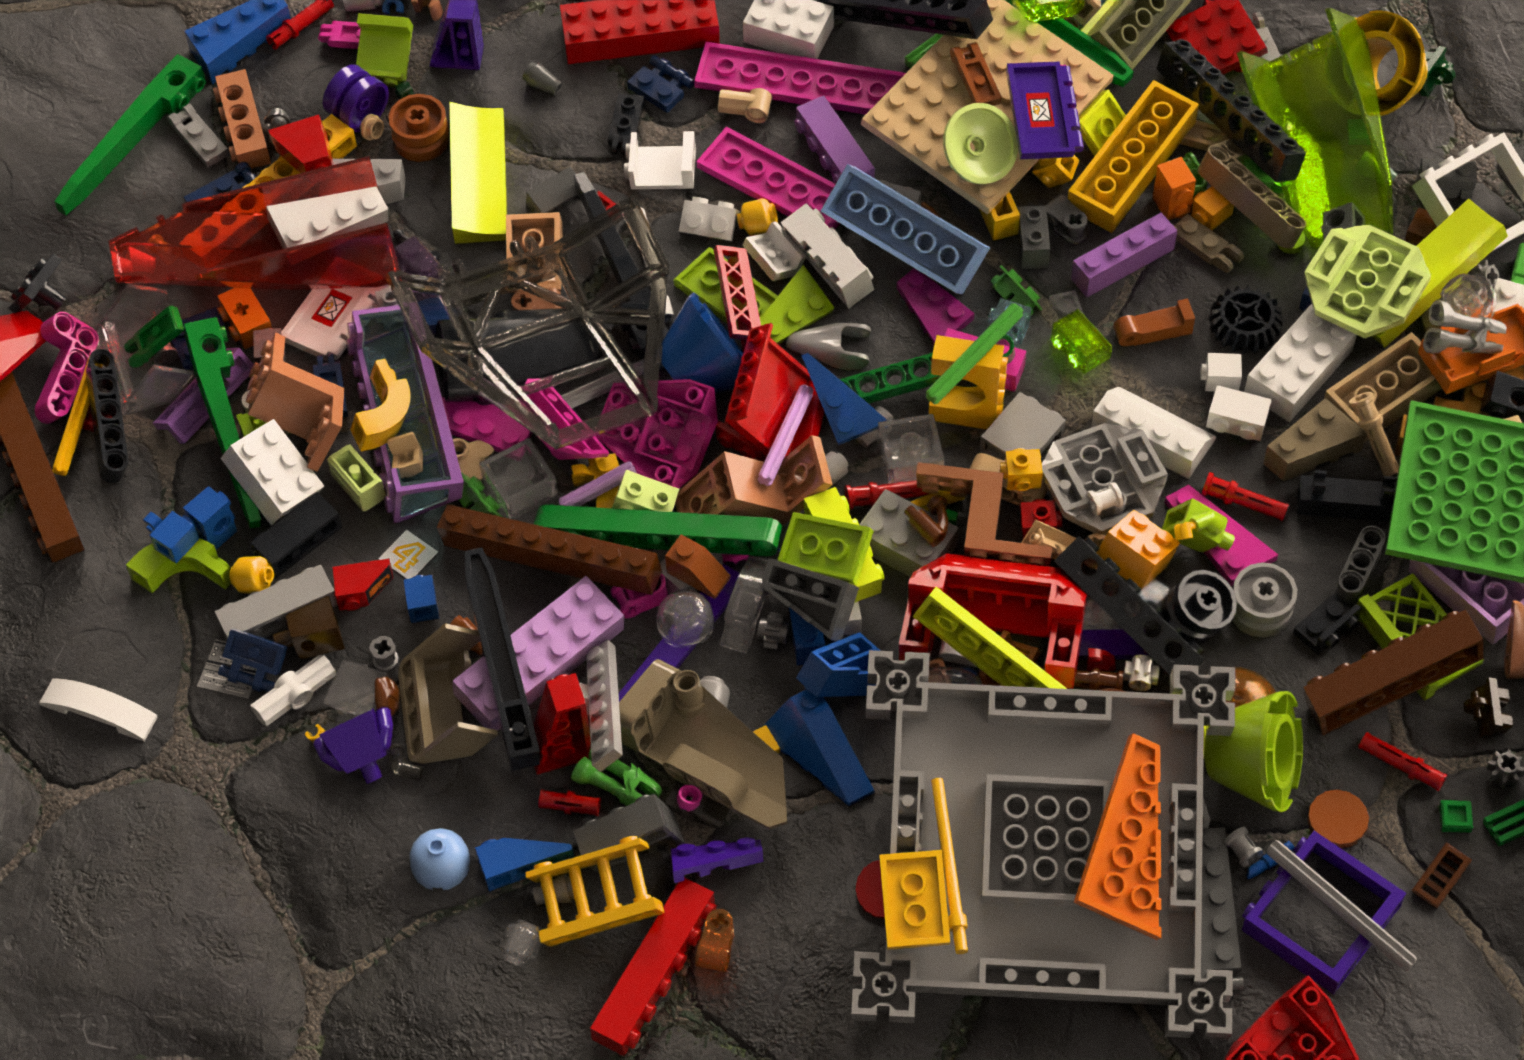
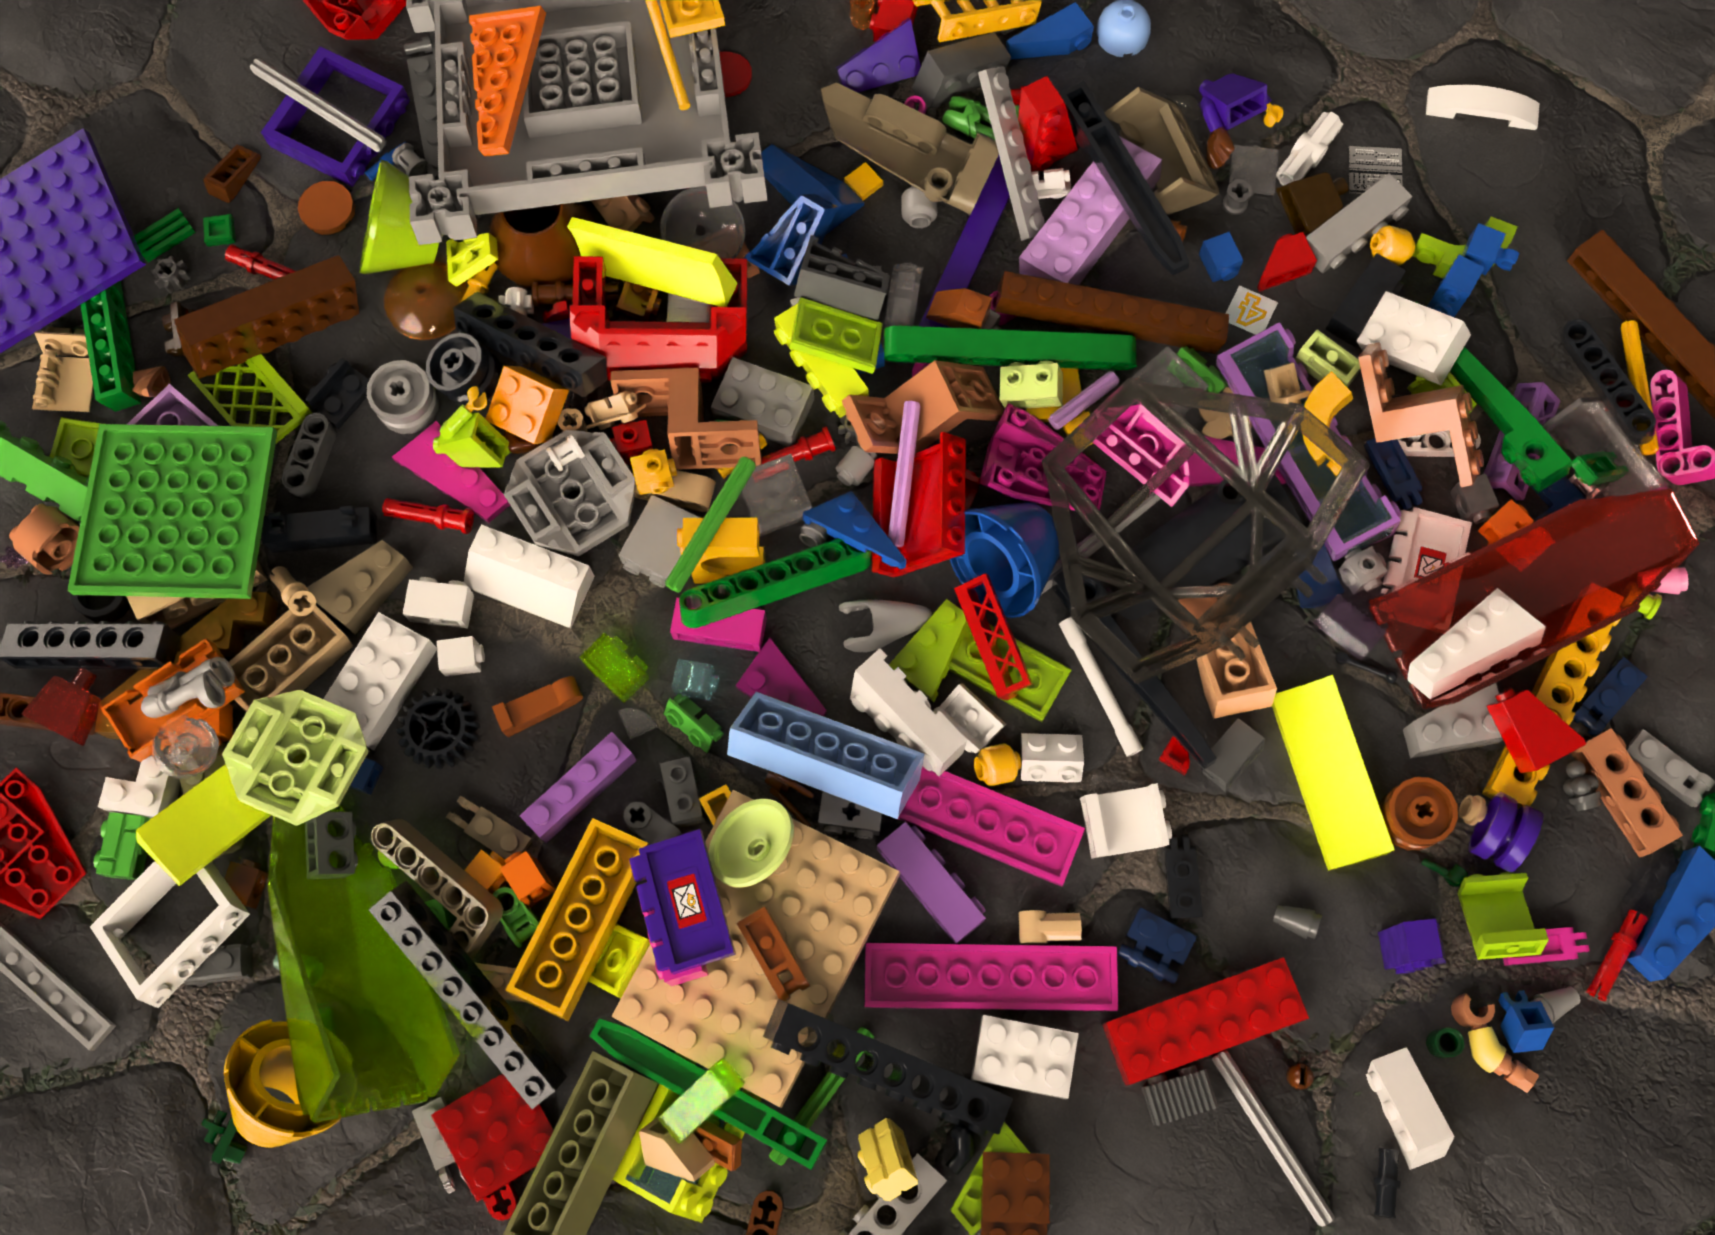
camera: 170 degrees right, 15 degrees up
(253, 652) = (1358, 162): dark blue plate -> none
(685, 618) = (961, 269): clear cylinder -> none
(925, 526) = (743, 388): reddish brown plant -> none

